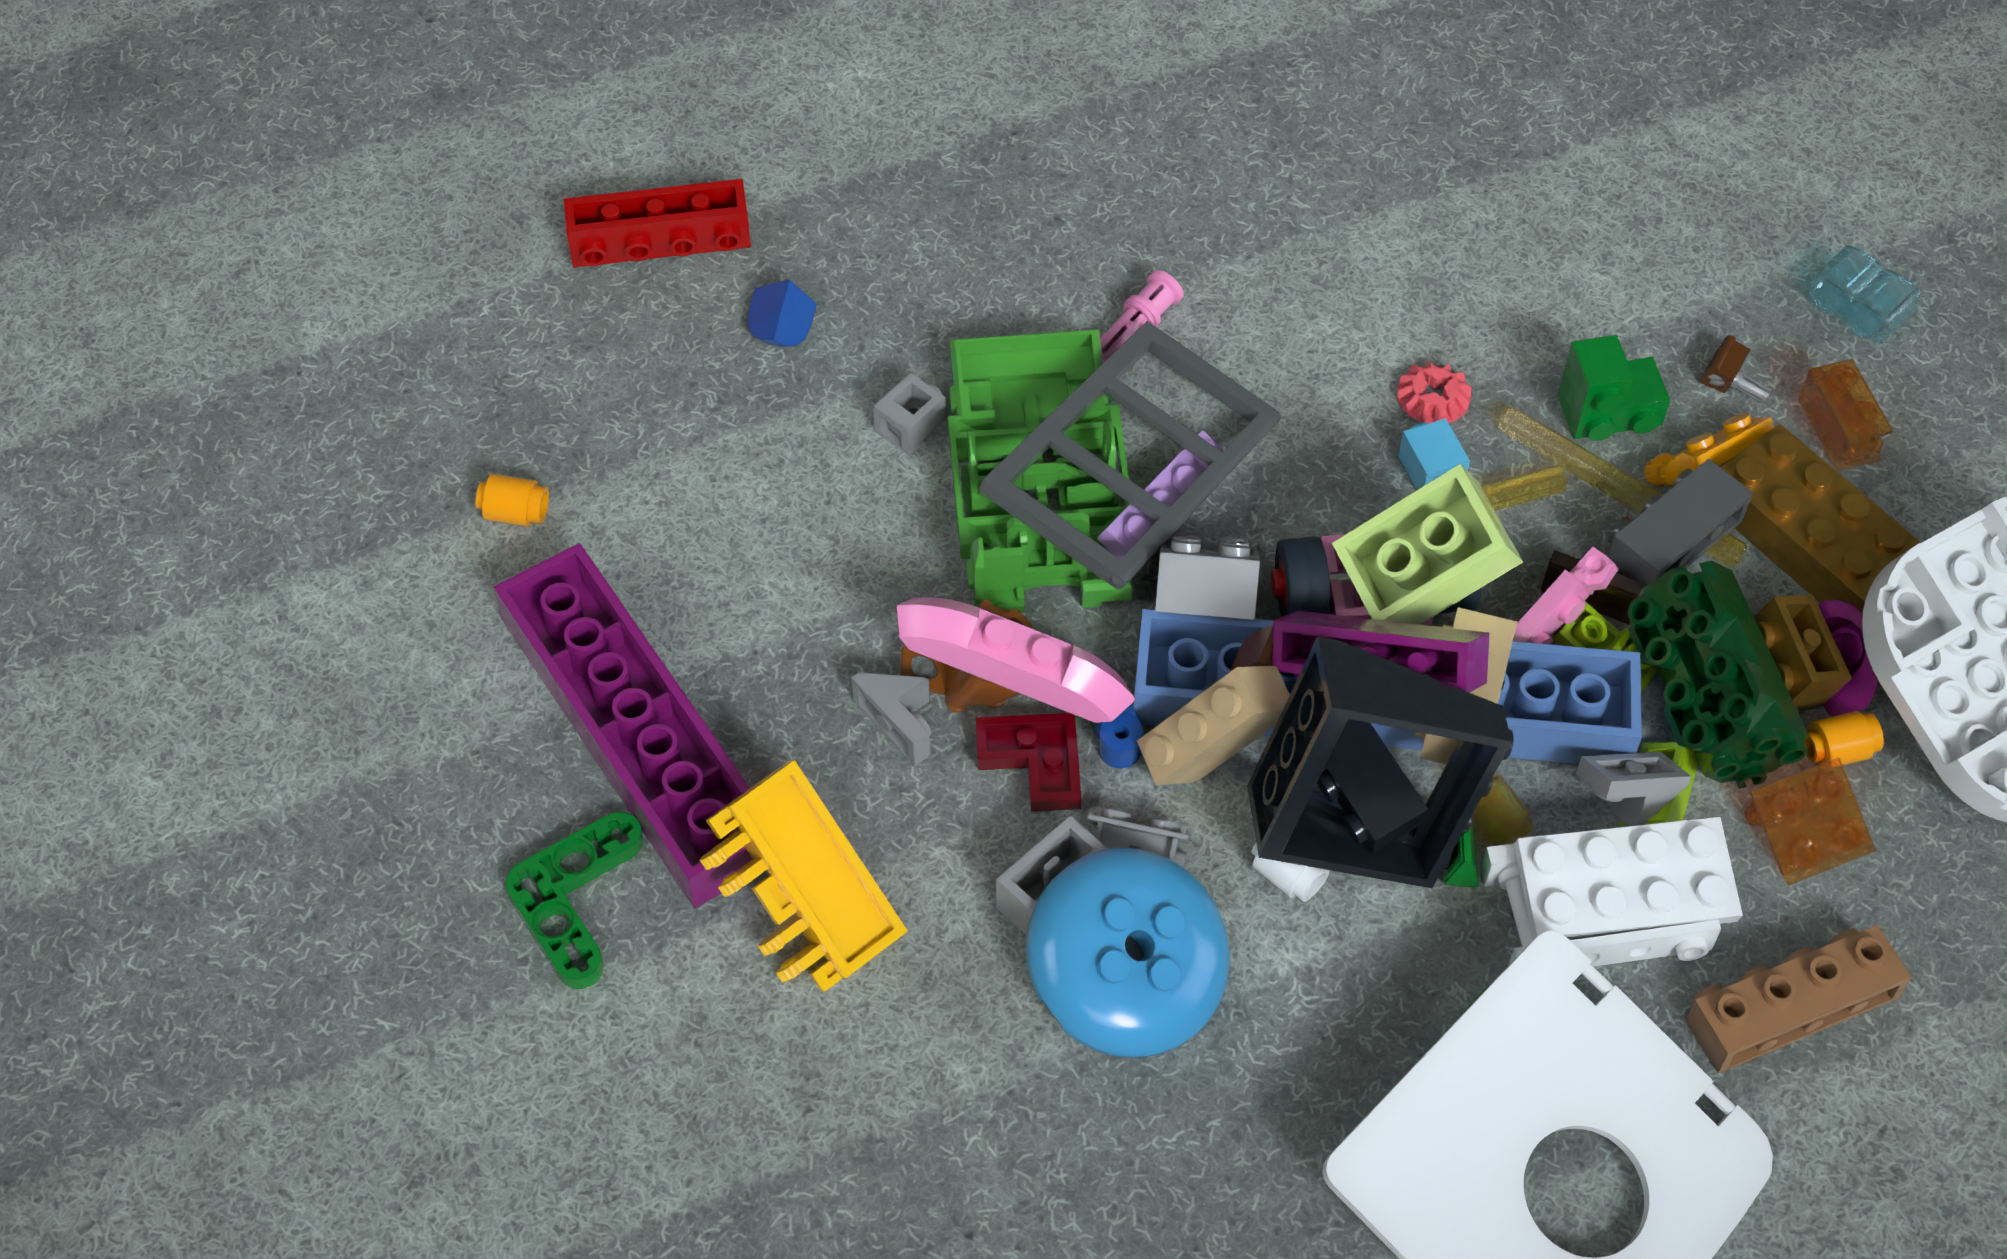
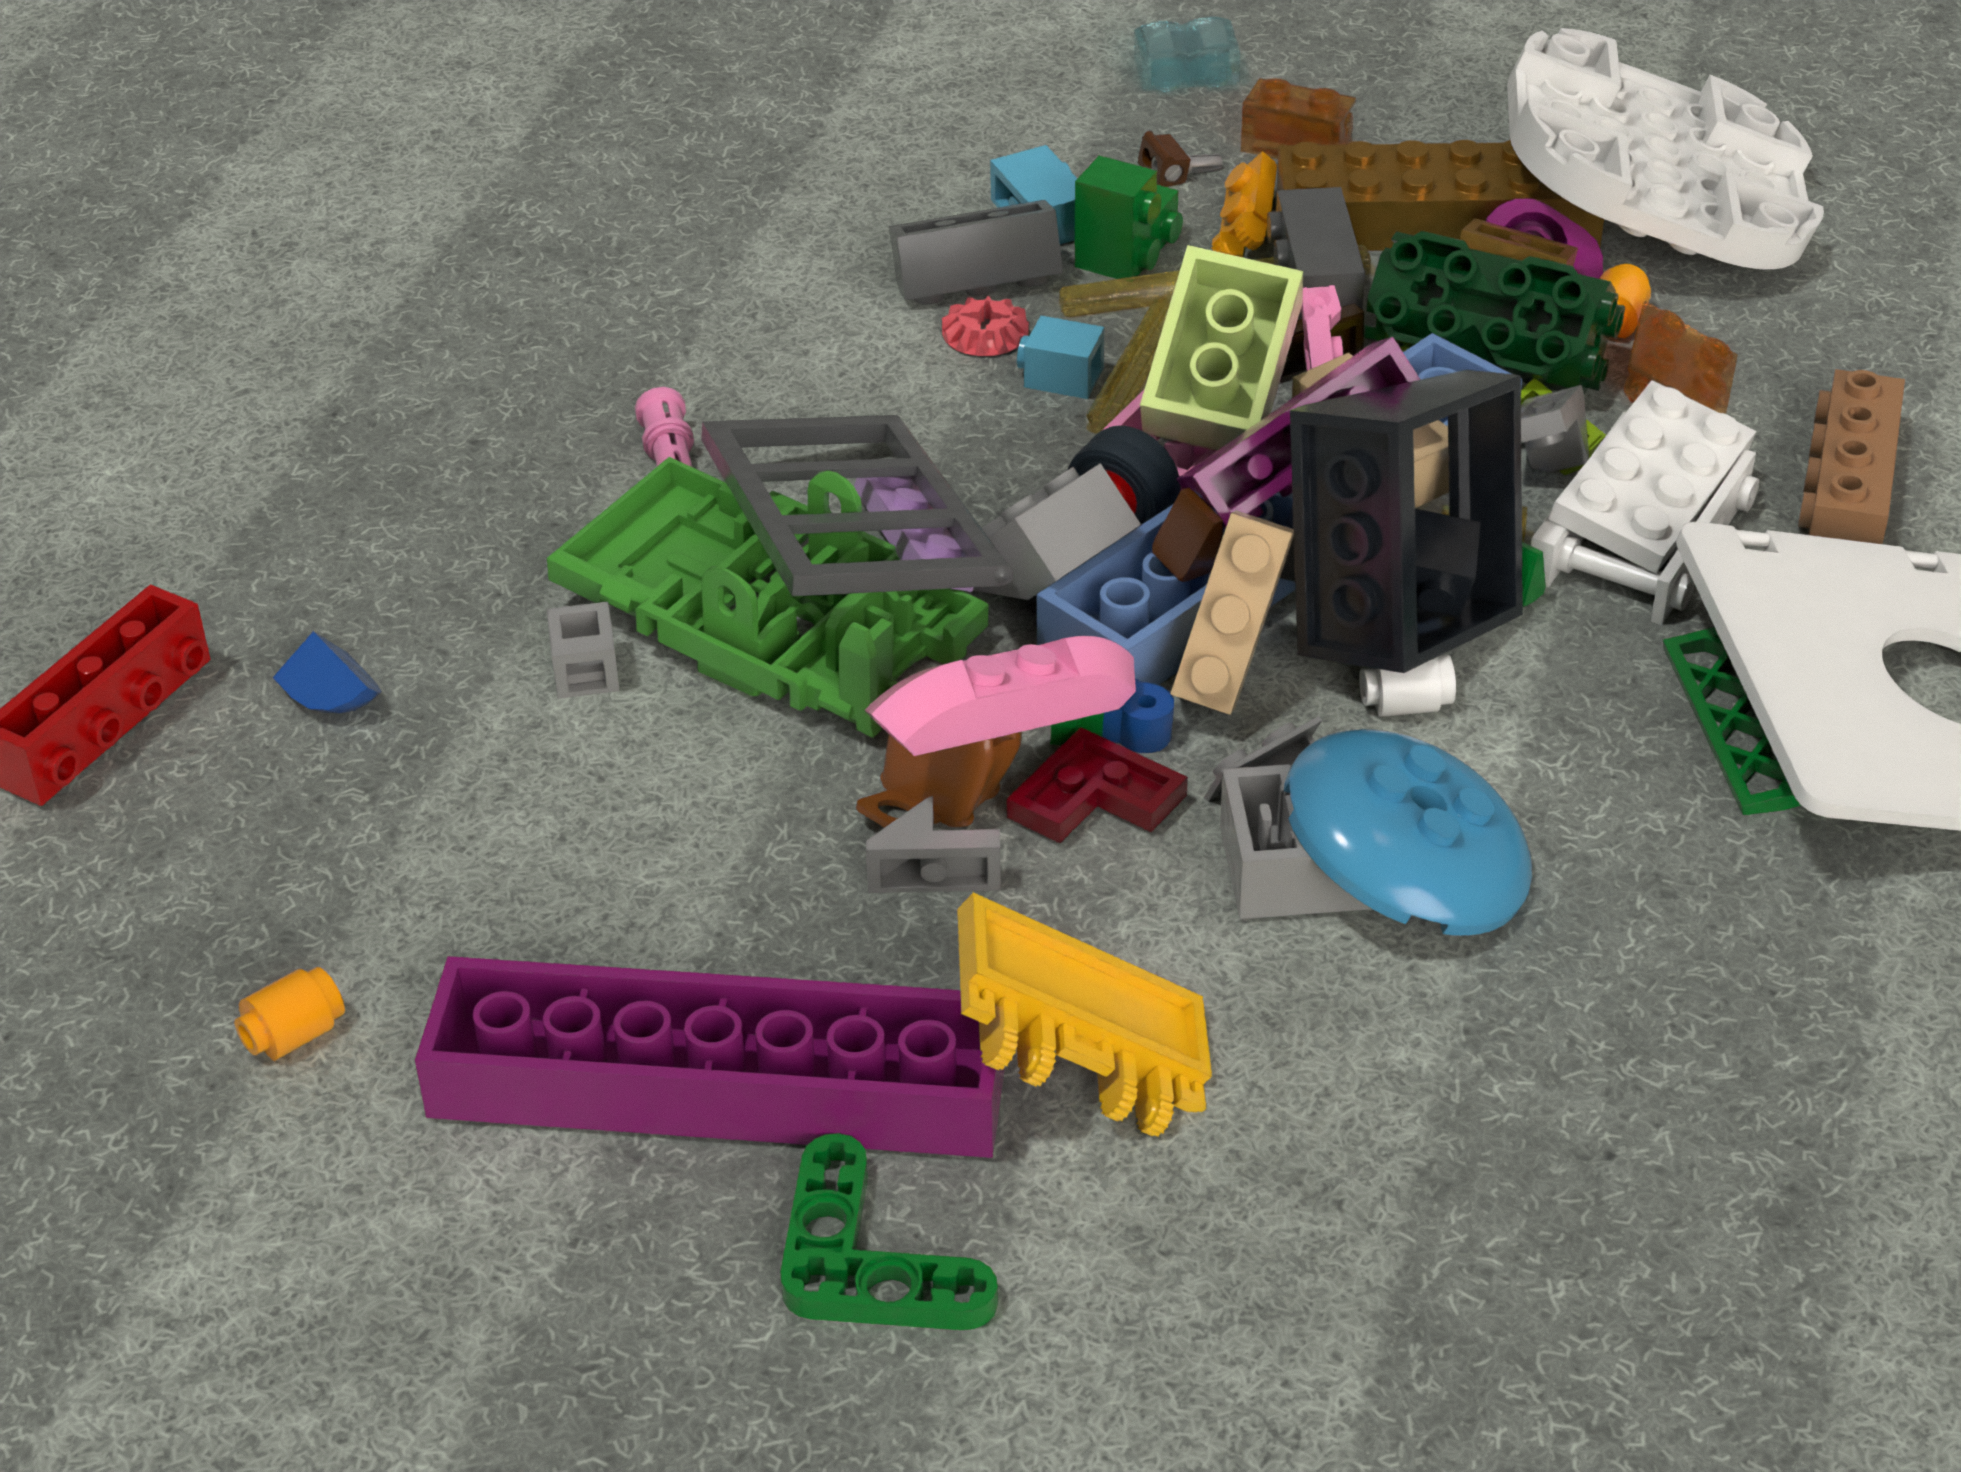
camera: 50 degrees left, 15 degrees down
(1488, 334) = (976, 251): none -> dark grey brick
(1600, 311) = (1035, 177): none -> medium azure brick

